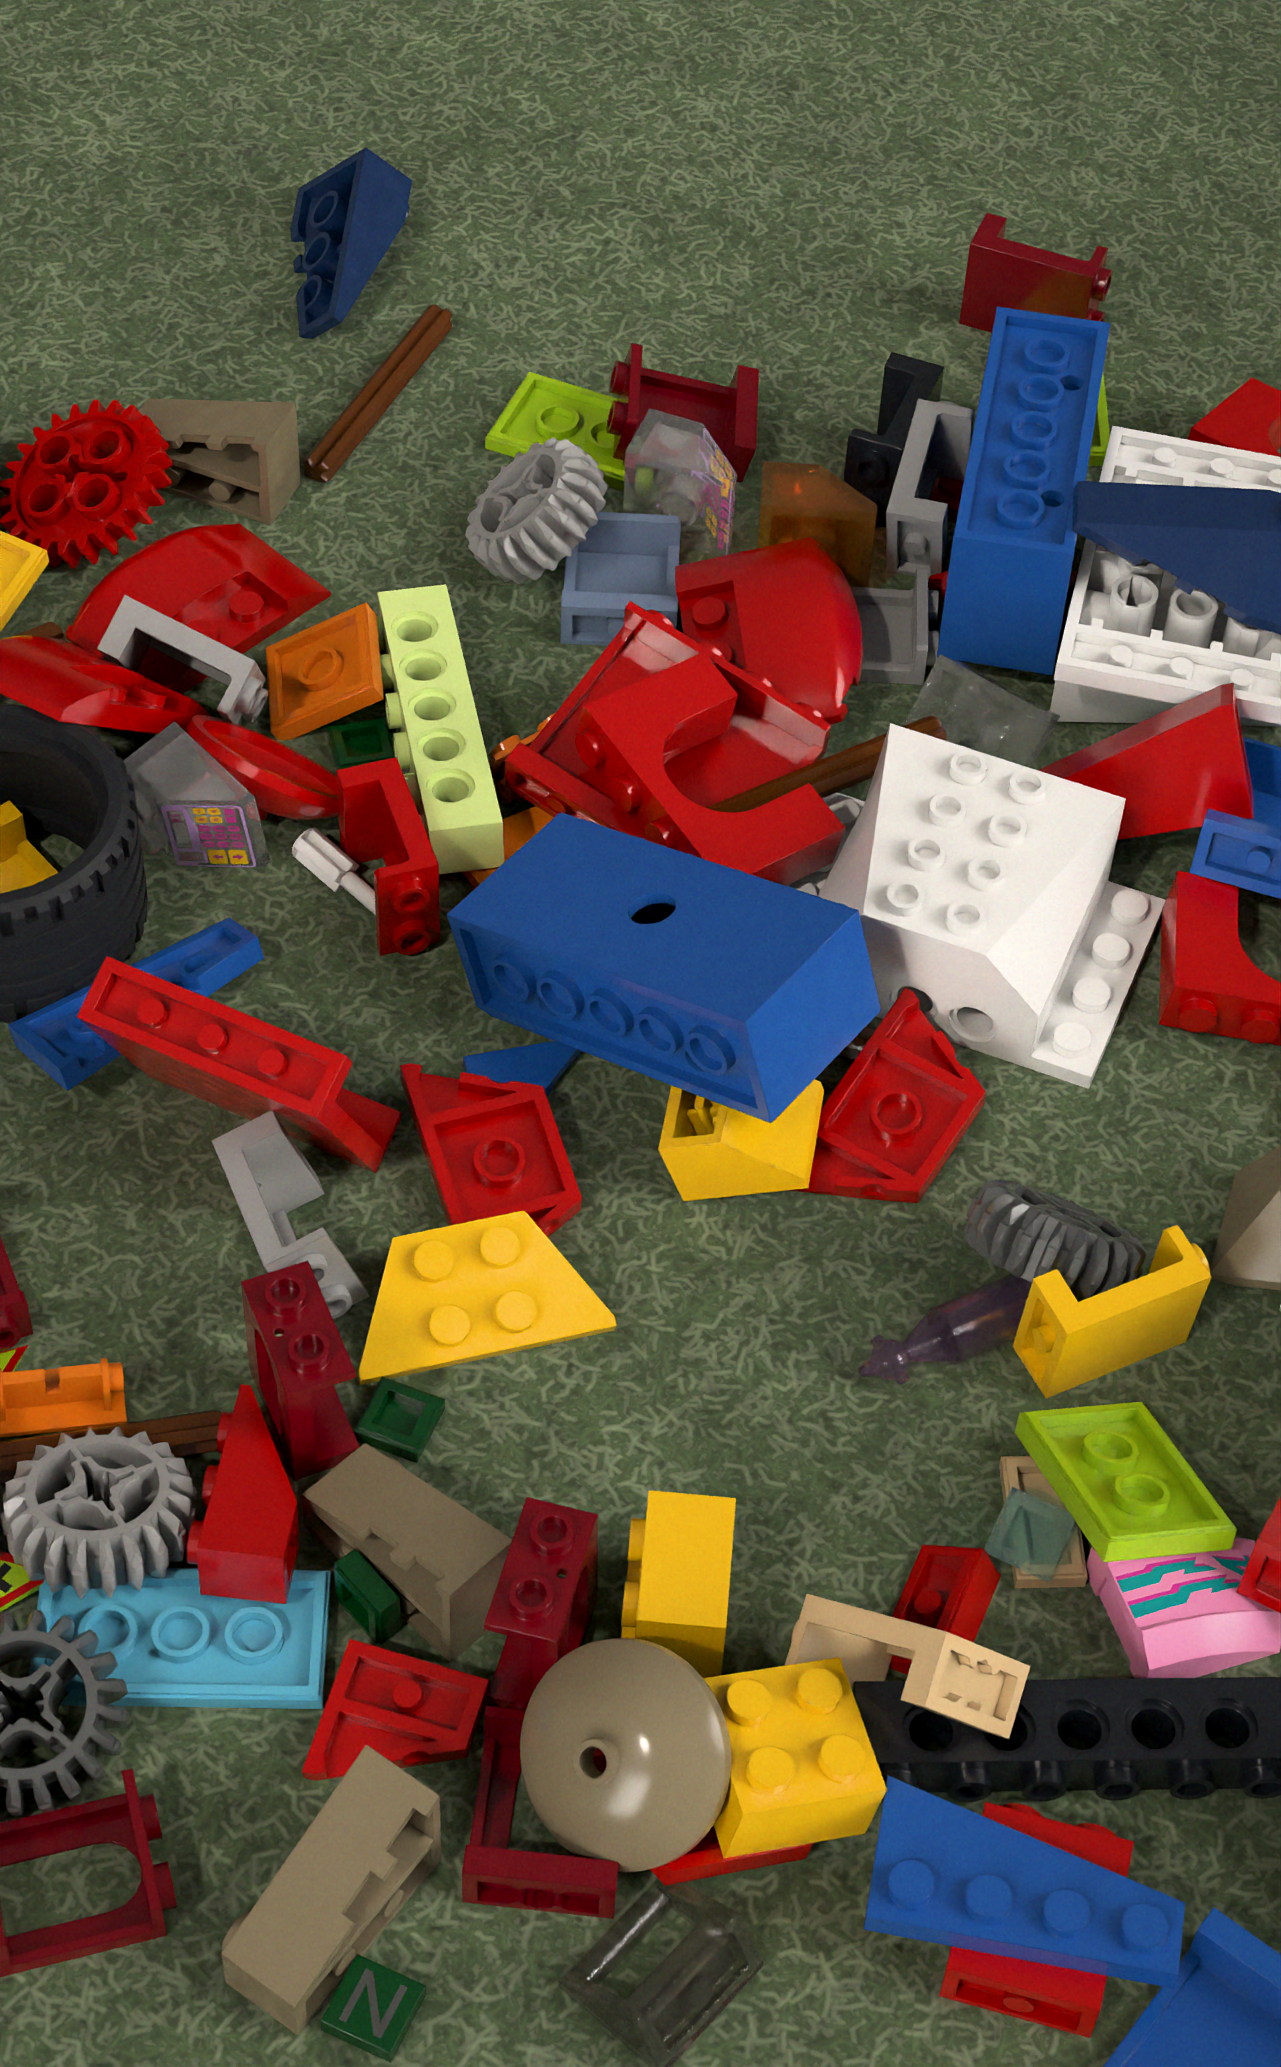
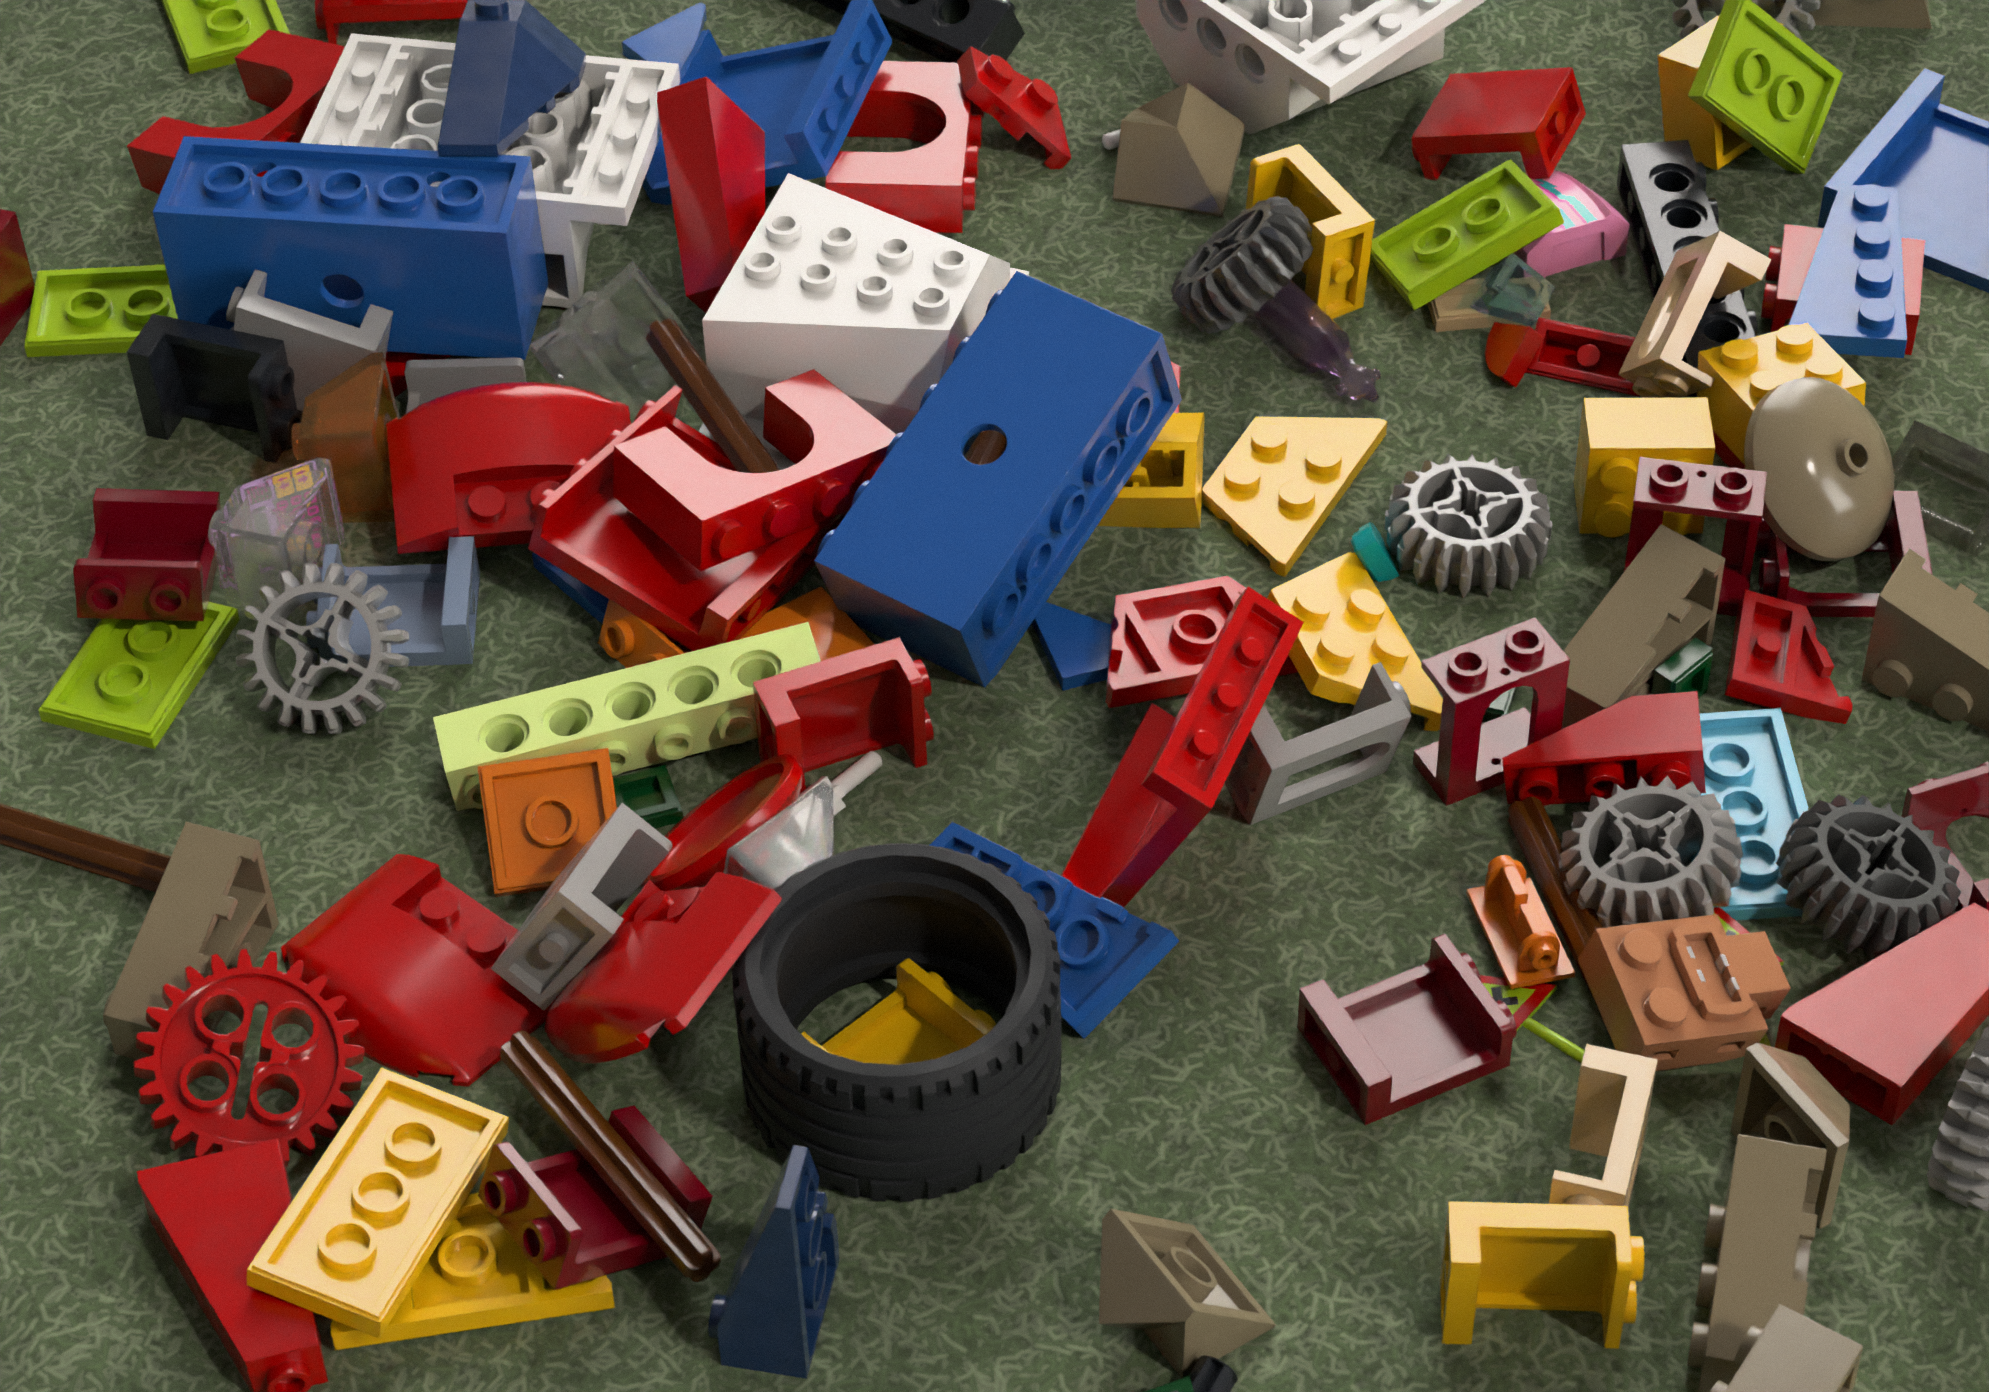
camera: 90 degrees left, 5 degrees down
(615, 1338) = (1373, 553): none -> teal tile
(672, 1407) = (1468, 524): none -> light grey gear
(743, 1283) = (1288, 479): none -> yellow wing
(942, 1524) = (1511, 350): none -> red tile

